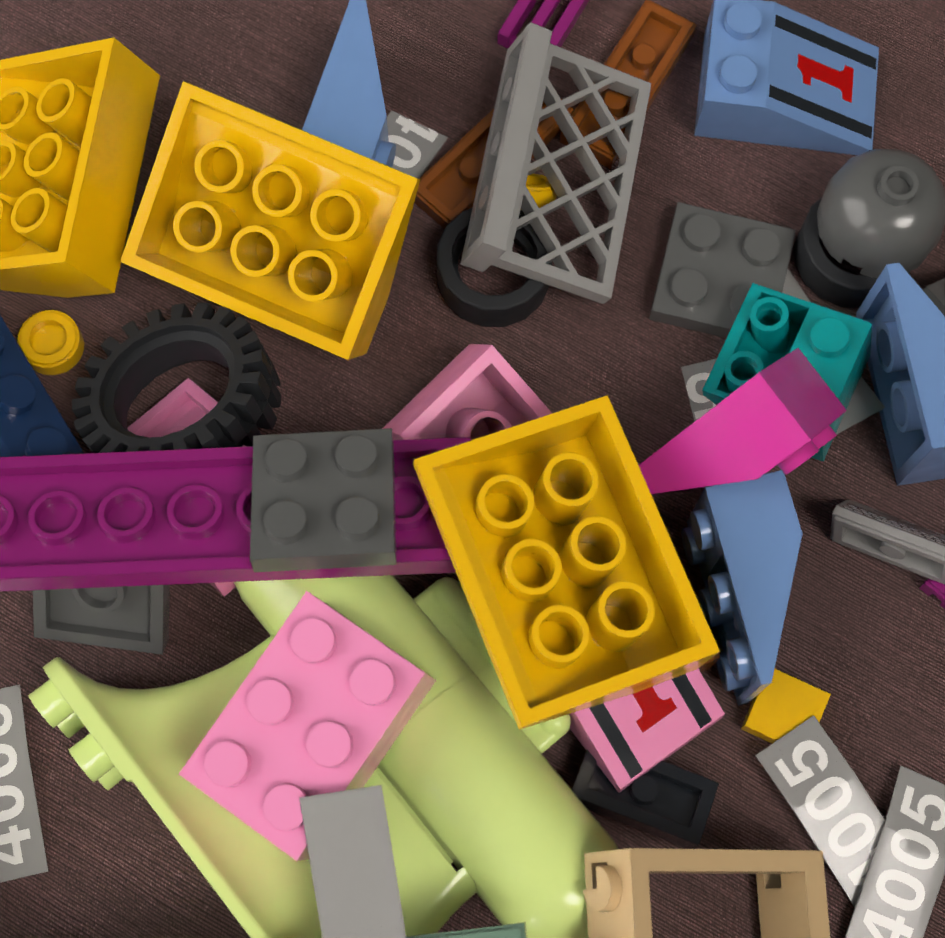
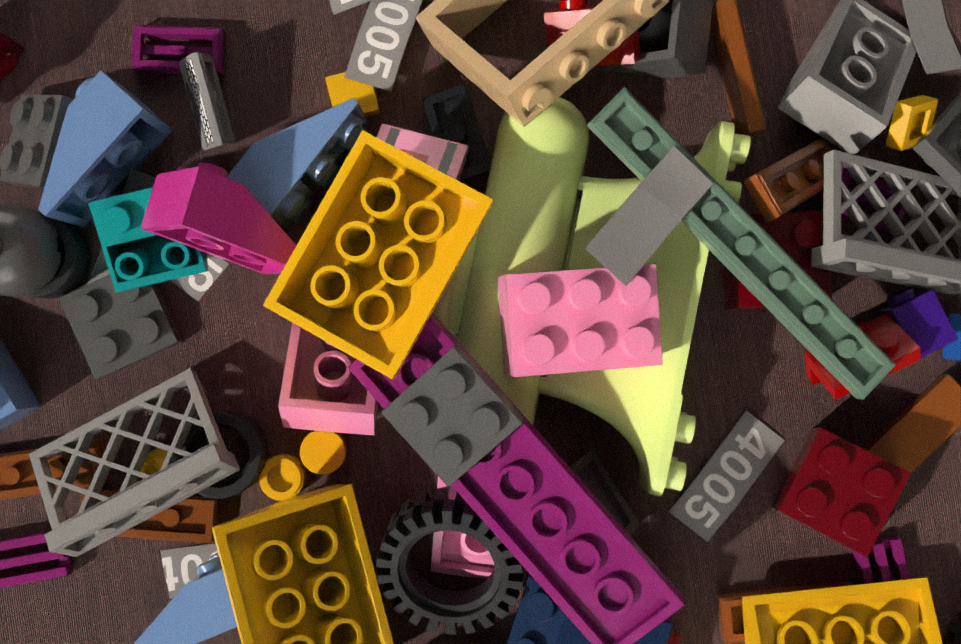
camera: 125 degrees left, 15 degrees up
(408, 366) = (323, 451): none -> yellow tile
(418, 308) = (282, 477): none -> yellow tile

